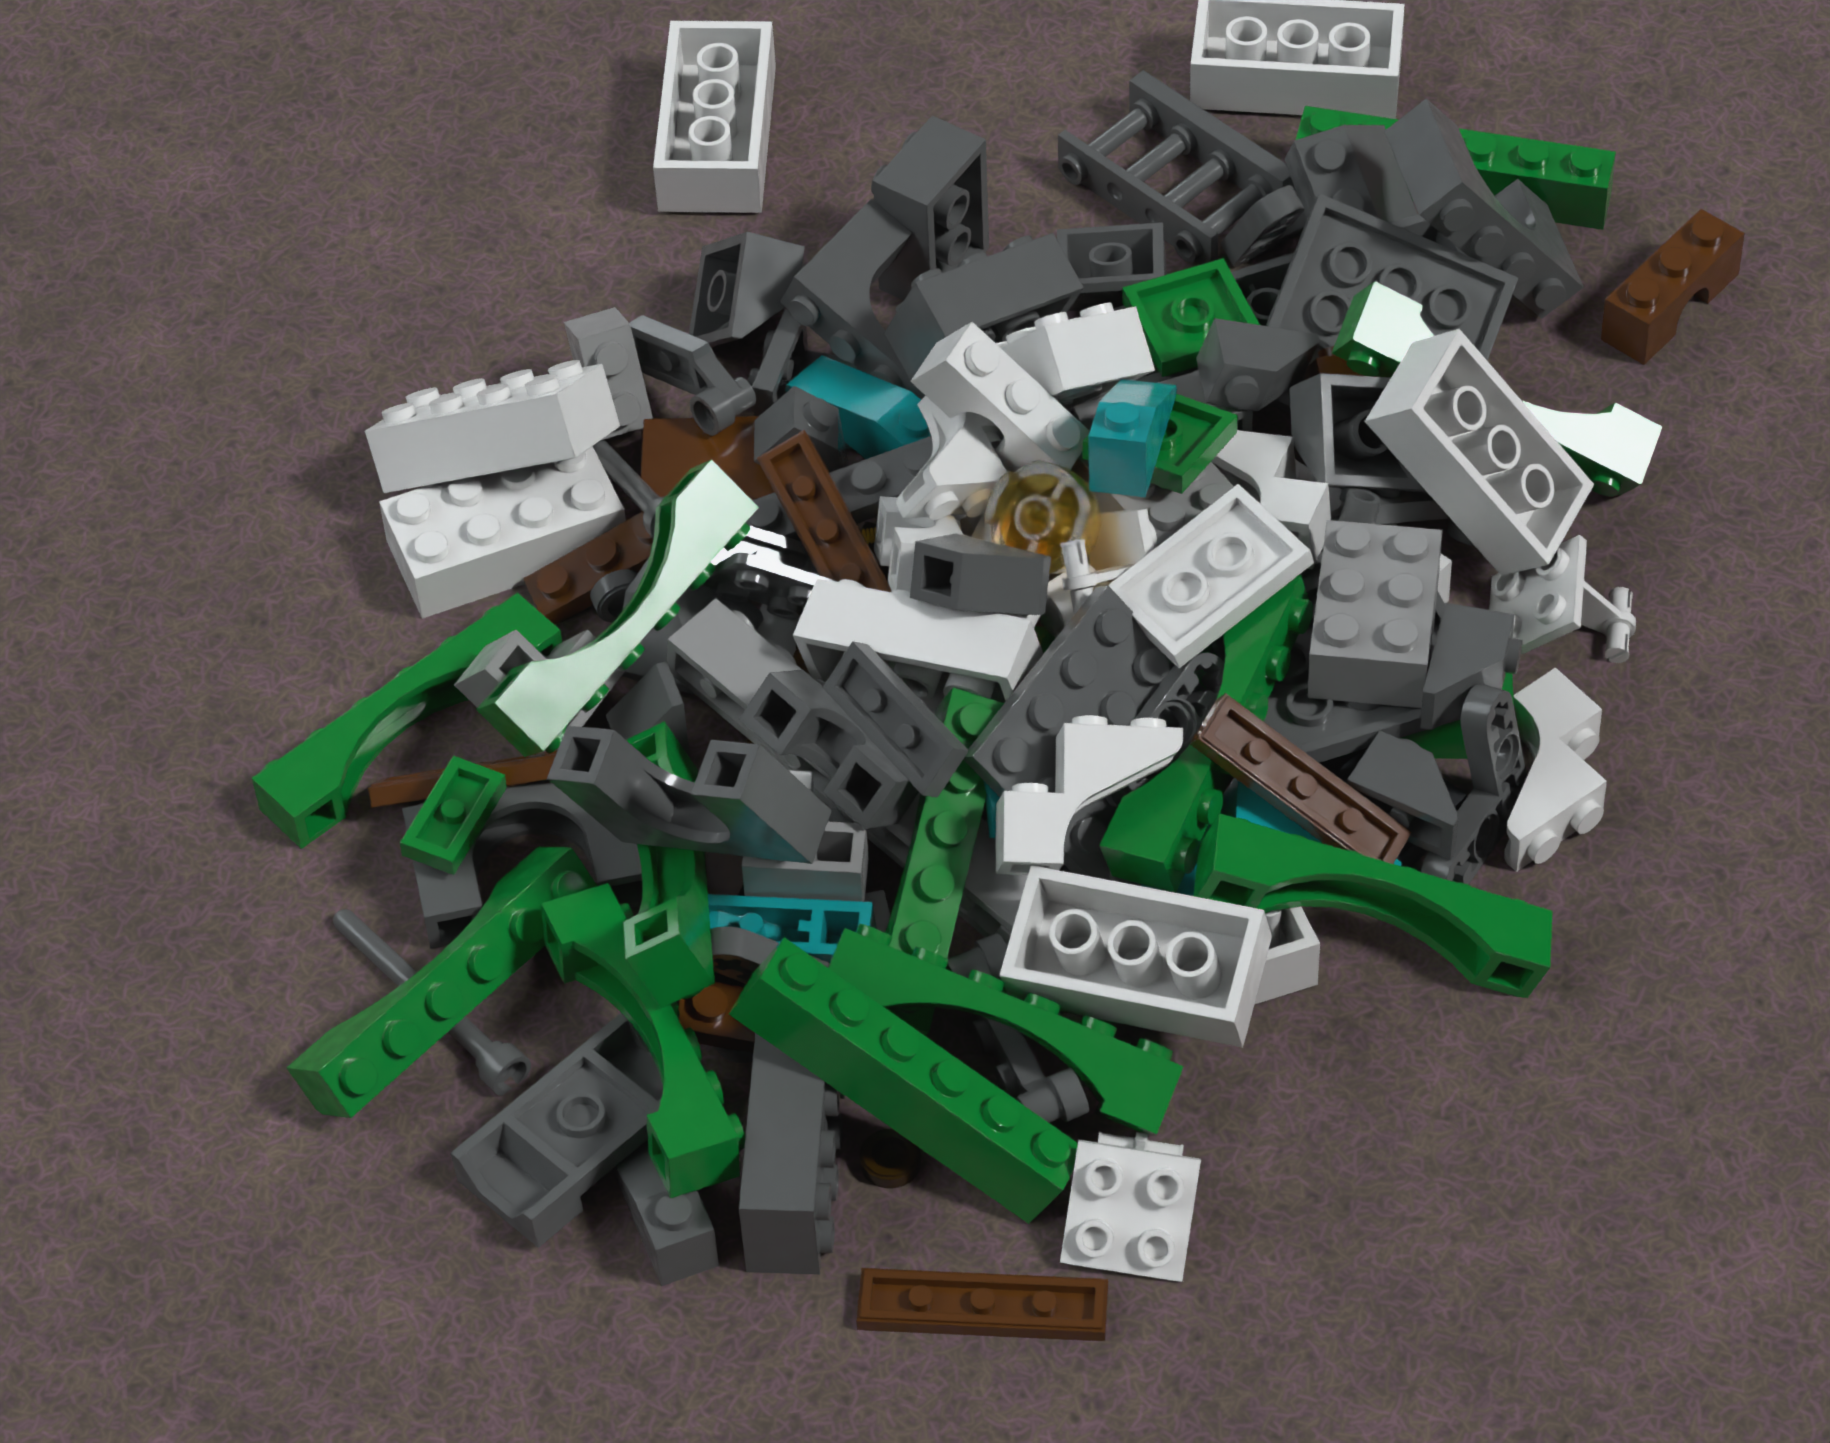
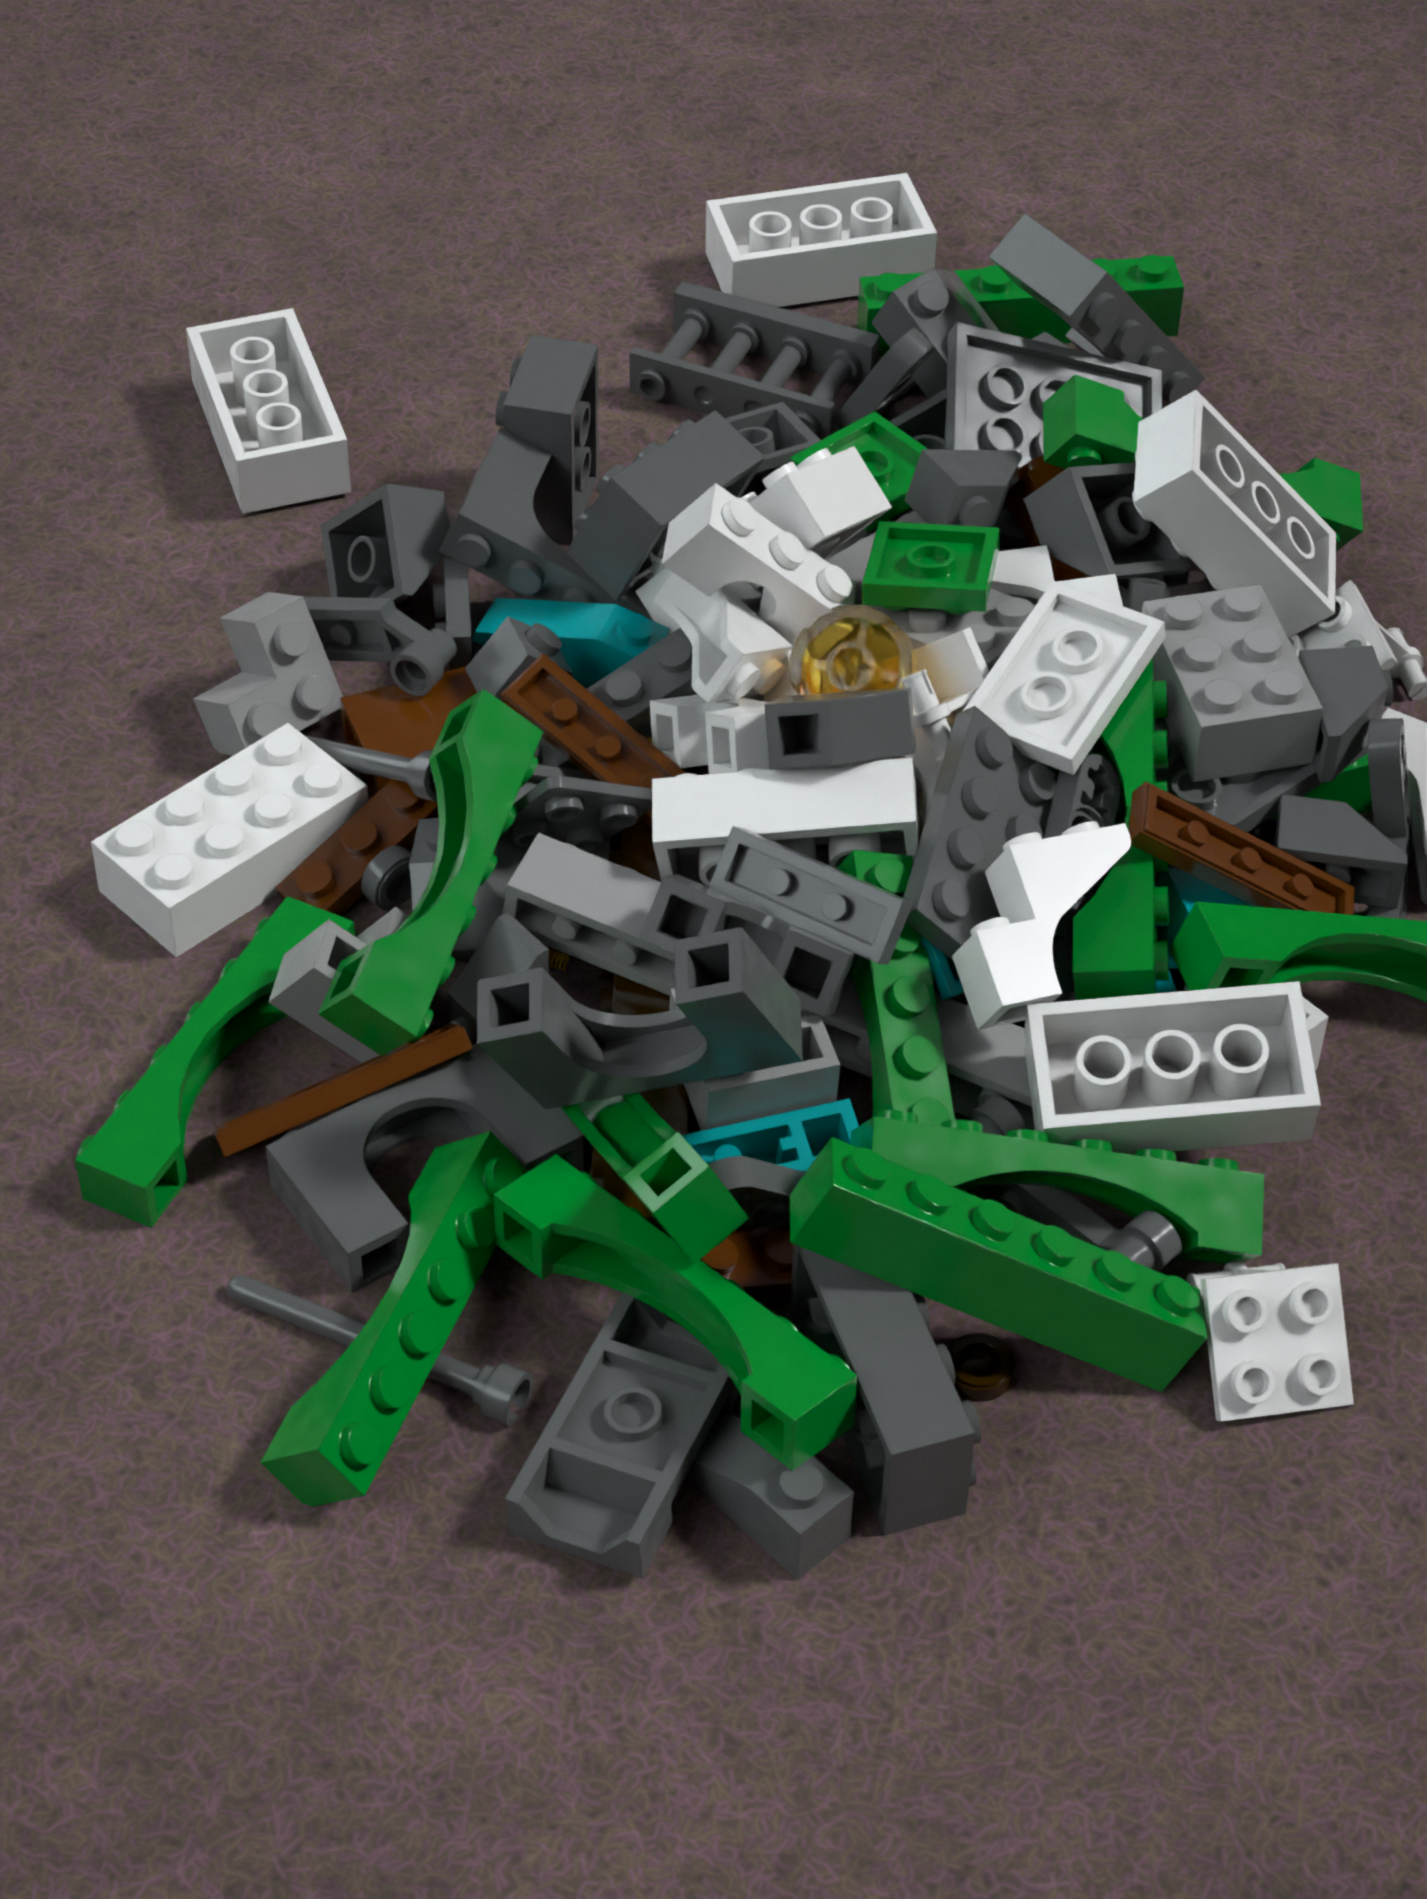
camera: 25 degrees left, 5 degrees down
(453, 815) = (336, 1134): green plate -> none
(492, 426) = (191, 734): white brick -> none
(982, 1304) = (1160, 1491): reddish brown tile -> none
(1128, 436) = (920, 565): teal slope -> none
(1648, 304) = (1280, 360): reddish brown arch -> none

